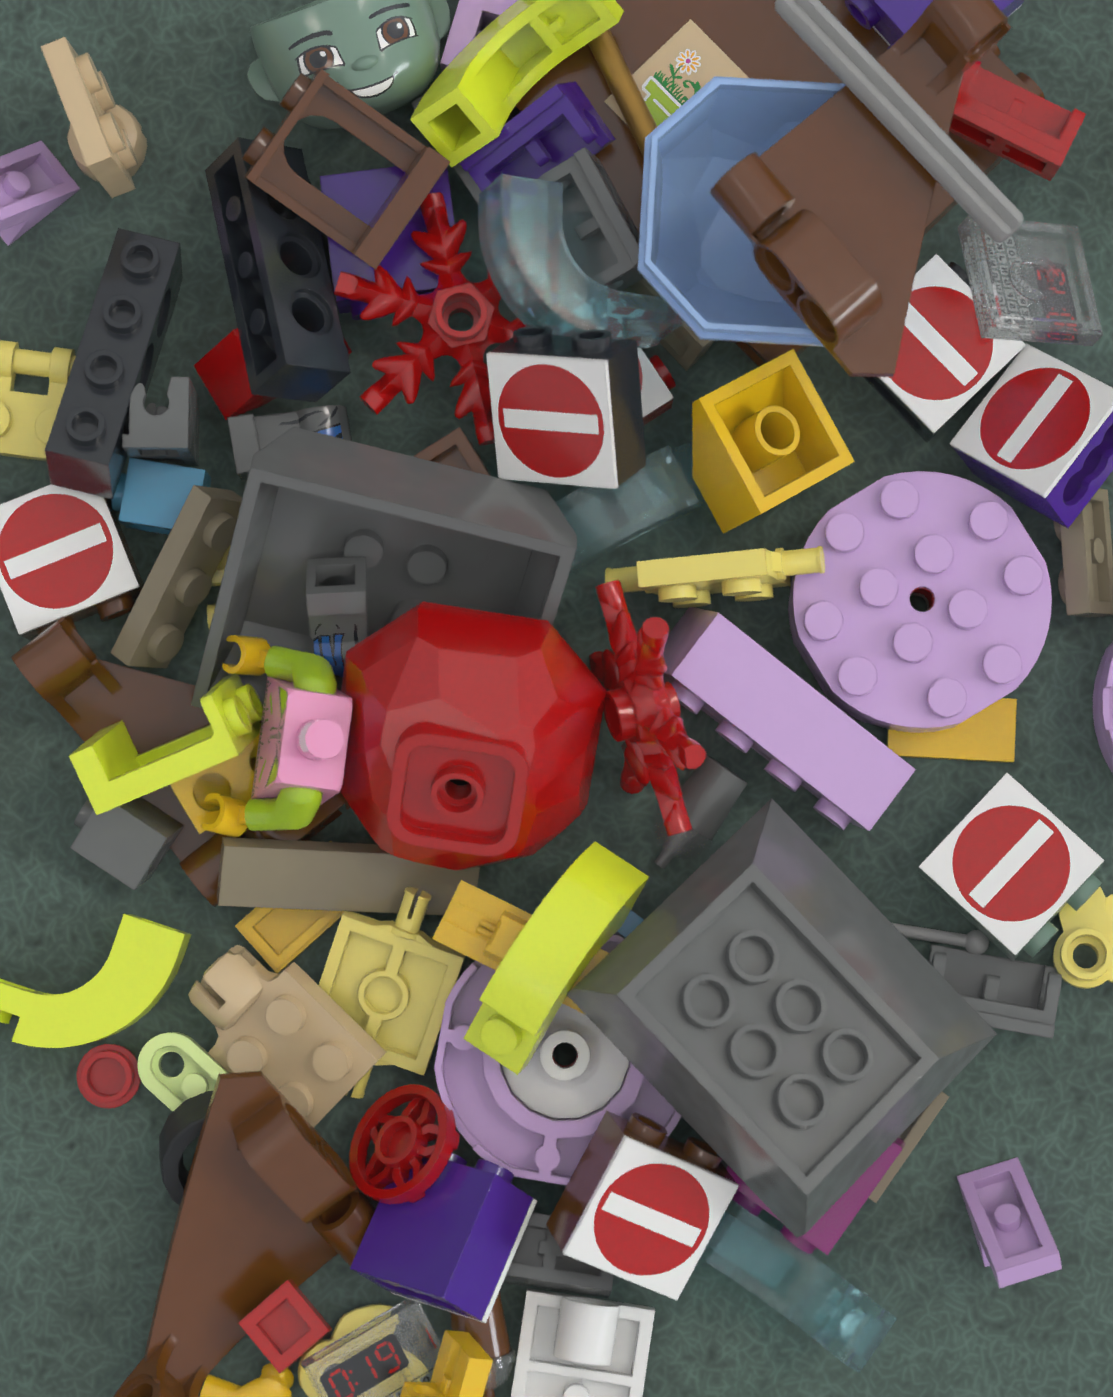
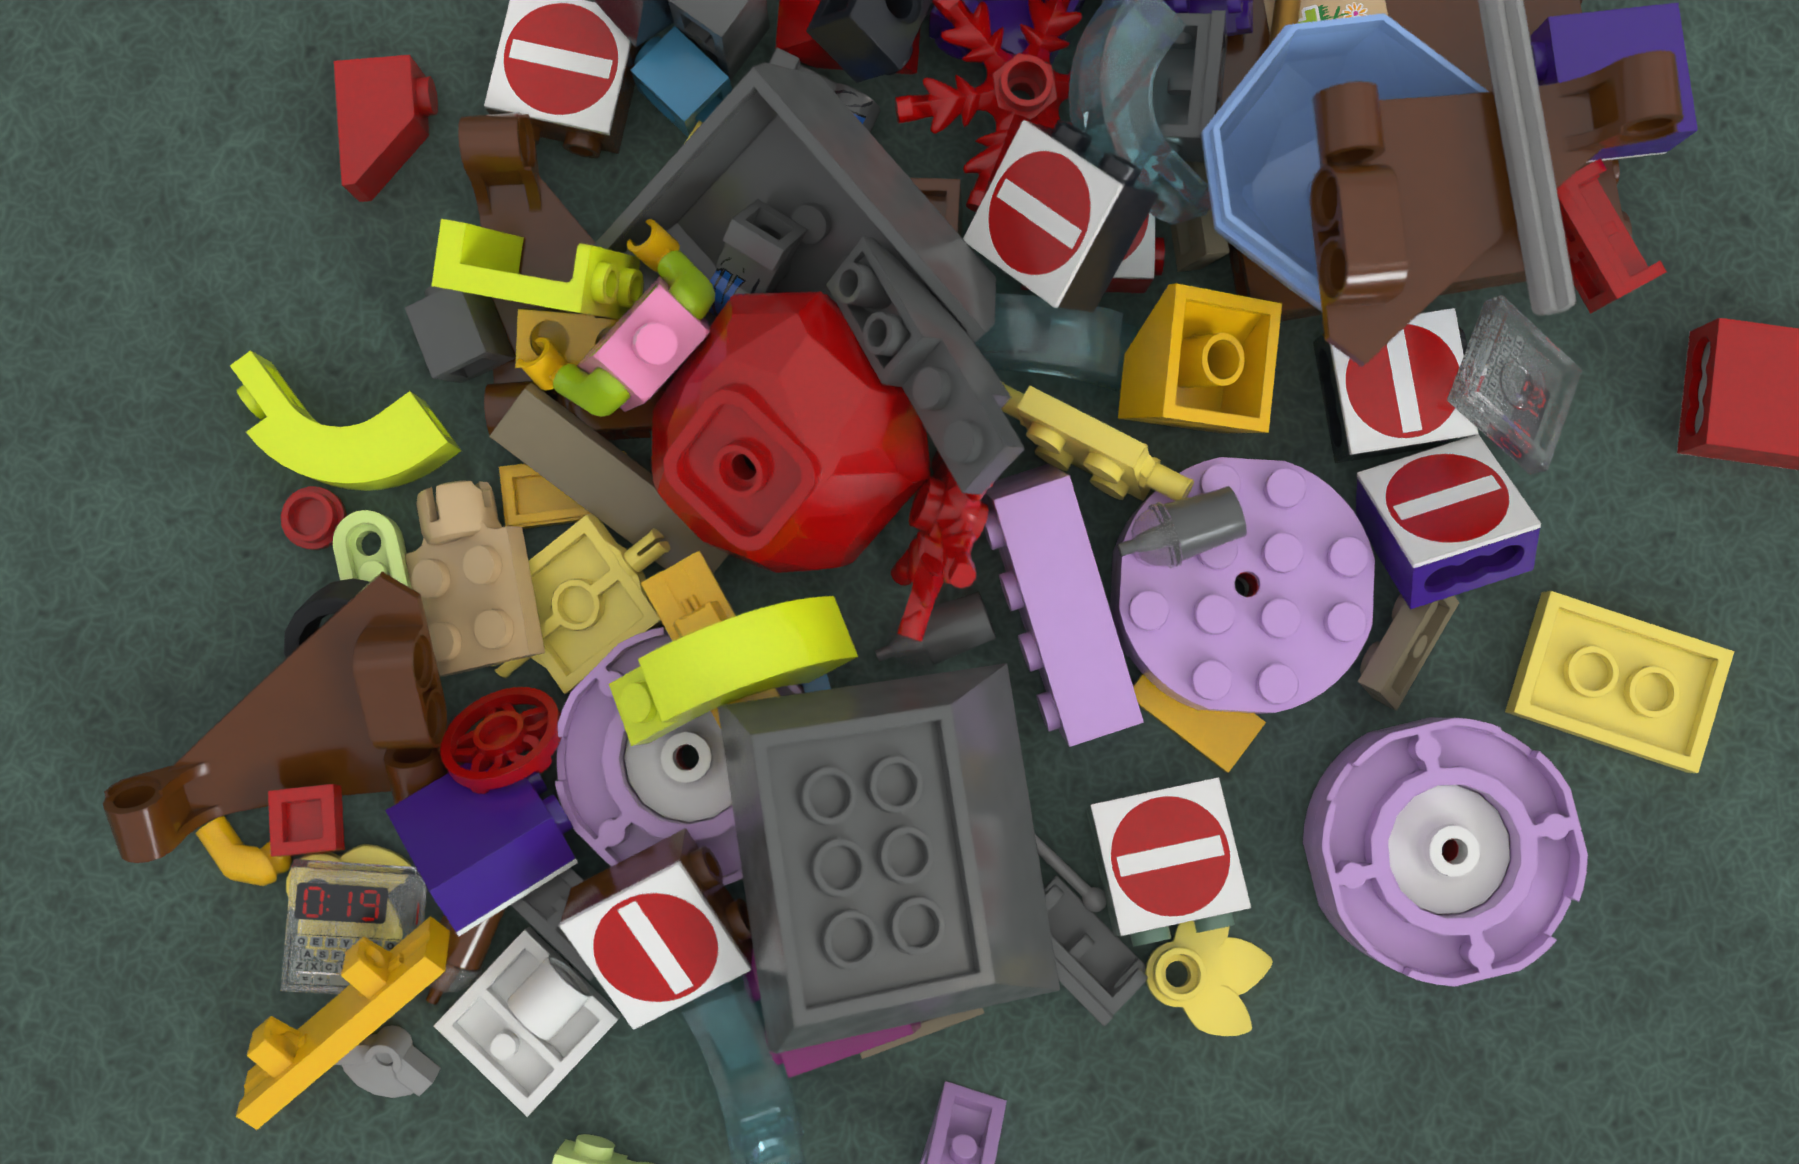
camera: 30 degrees right, 0 degrees up
(179, 578) = (634, 154): dark tan plate -> none
(550, 599) = (932, 358): none -> dark grey slope
(841, 591) = (1185, 528): none -> dark grey piece

